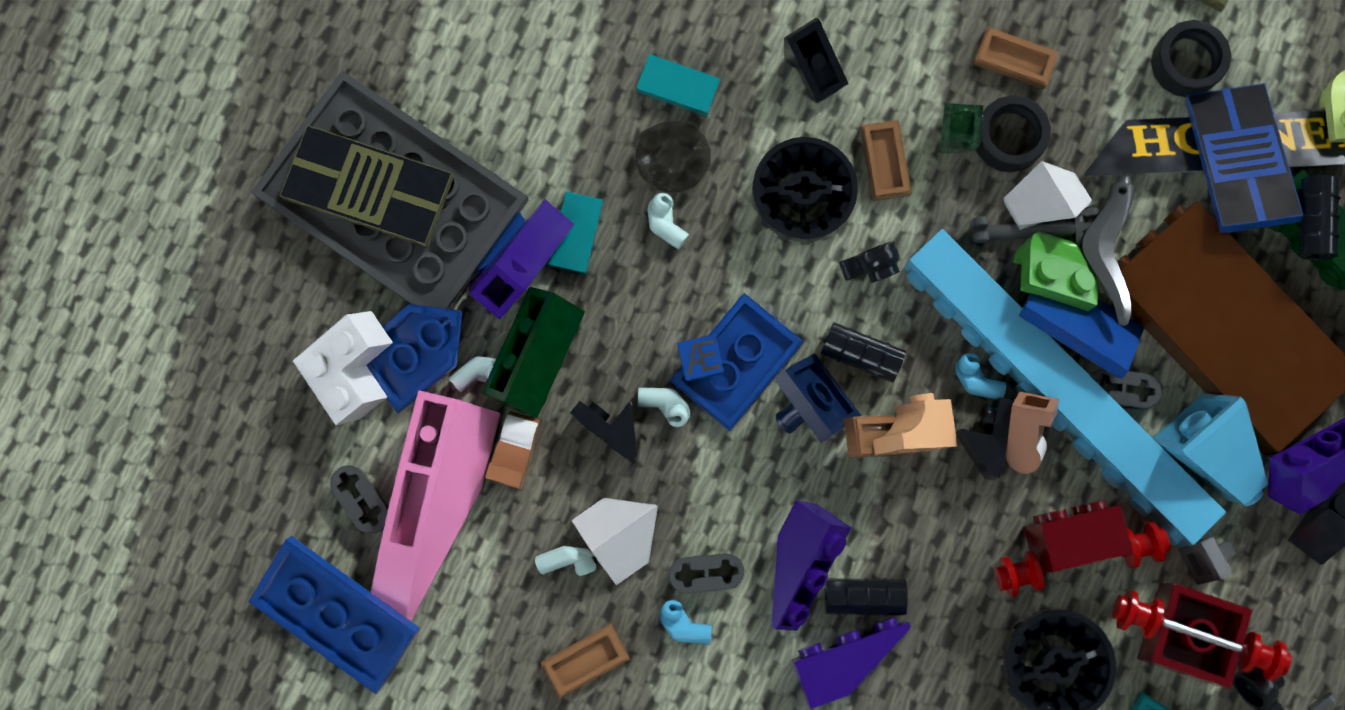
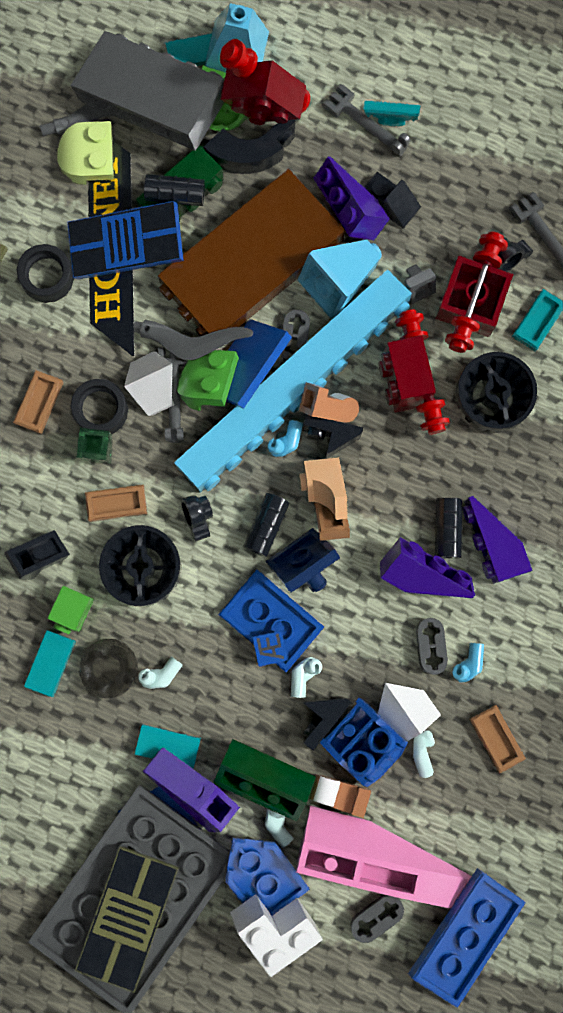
camera: 95 degrees left, 0 degrees up
(578, 482) = (364, 744): none -> blue slope
(746, 106) = (70, 610): none -> bright green brick

